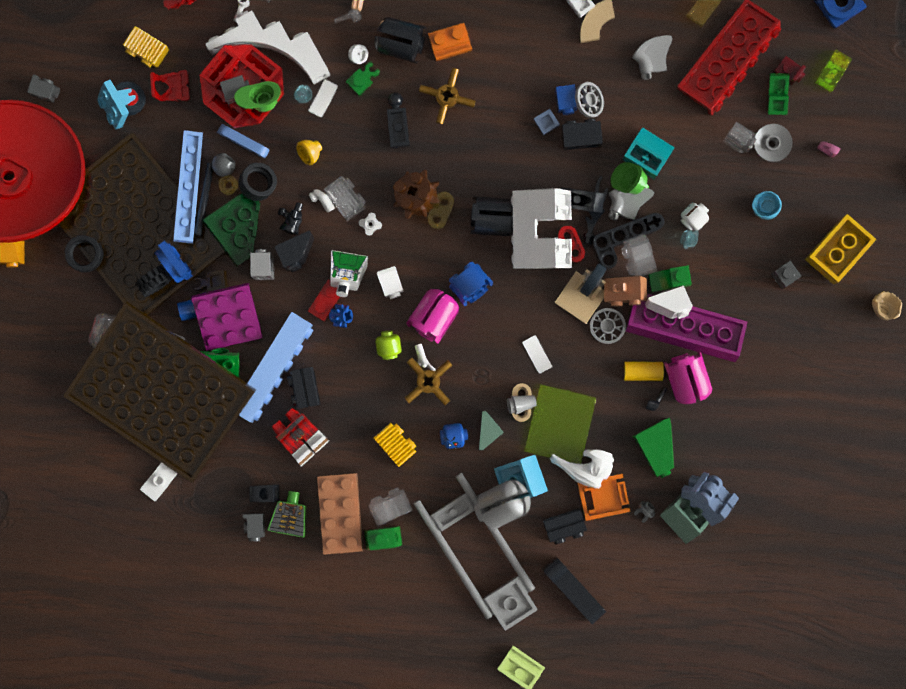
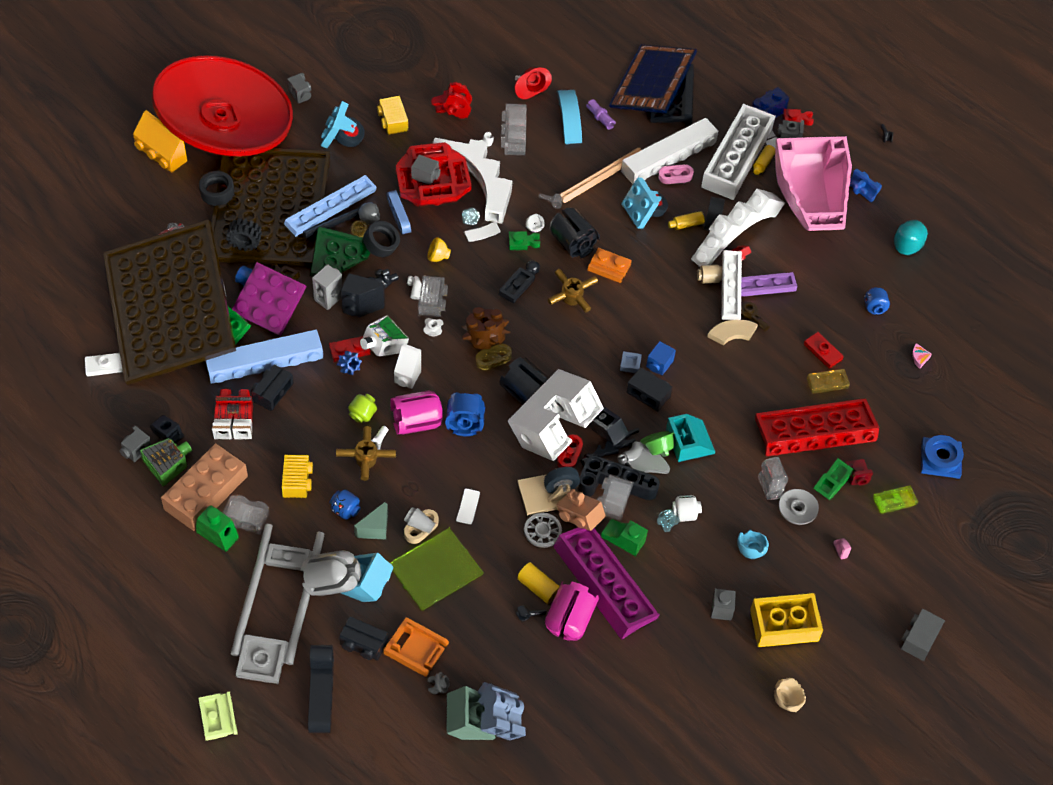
camera: 35 degrees right, 30 degrees down
(172, 263) = (269, 233): blue piece -> none
(177, 86) = (391, 148): red piece -> none
(258, 96) = (435, 181): bright green piece -> none
(589, 99) = (677, 370): light grey wheel -> none
(590, 473) = (425, 612): white hair -> none
(652, 55) = (755, 383): light grey arm -> none
(657, 447) = (496, 643): green slope -> none
(671, 303) = (606, 545): white slope -> none

